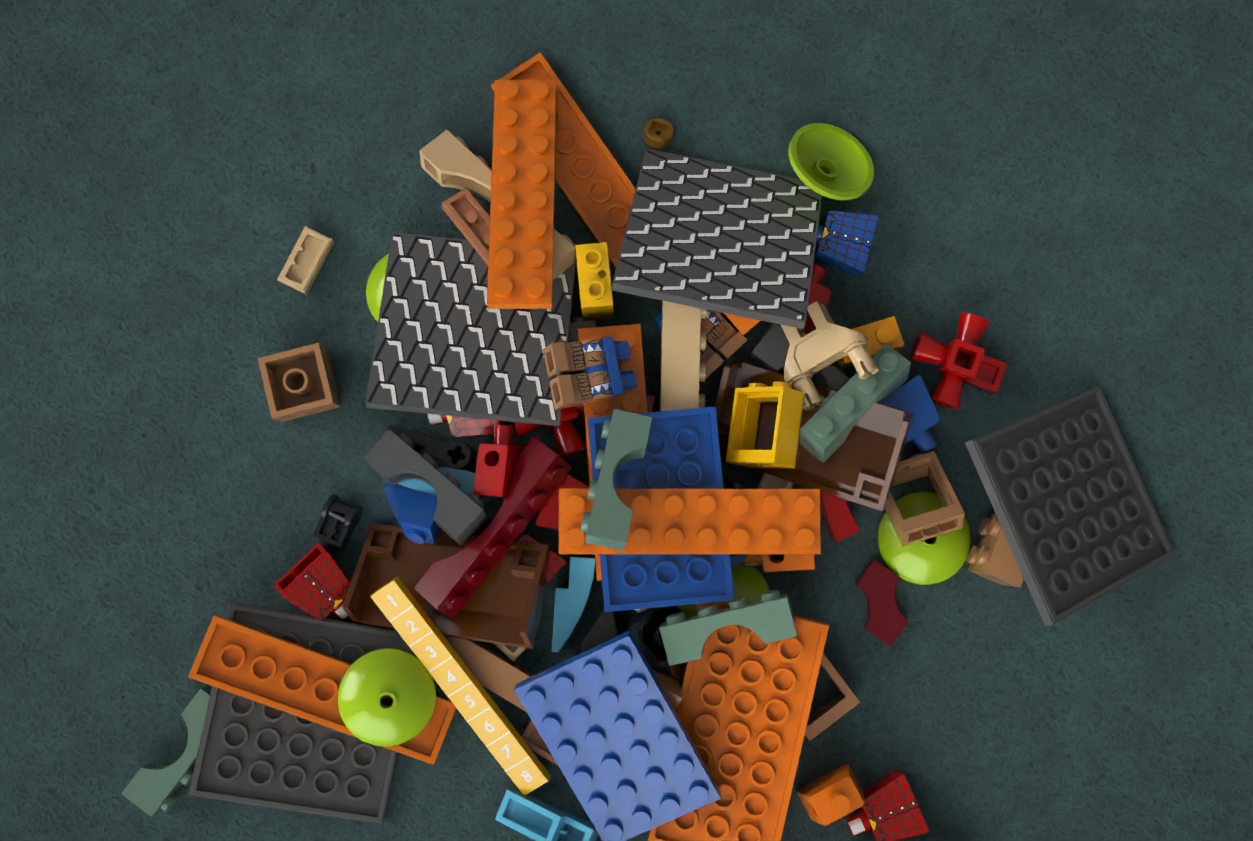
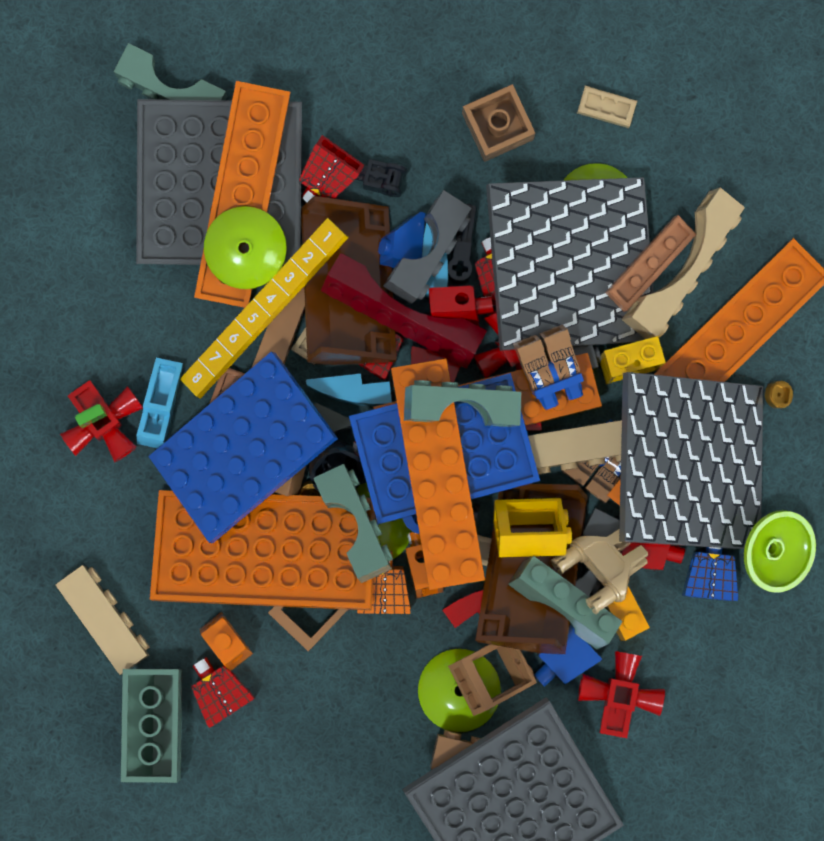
camera: 75 degrees right, 0 degrees up
(522, 195) = (697, 283): orange plate -> none
(809, 595) = (390, 592): none -> orange torso
(883, 615) = (408, 656): dark red tile -> none

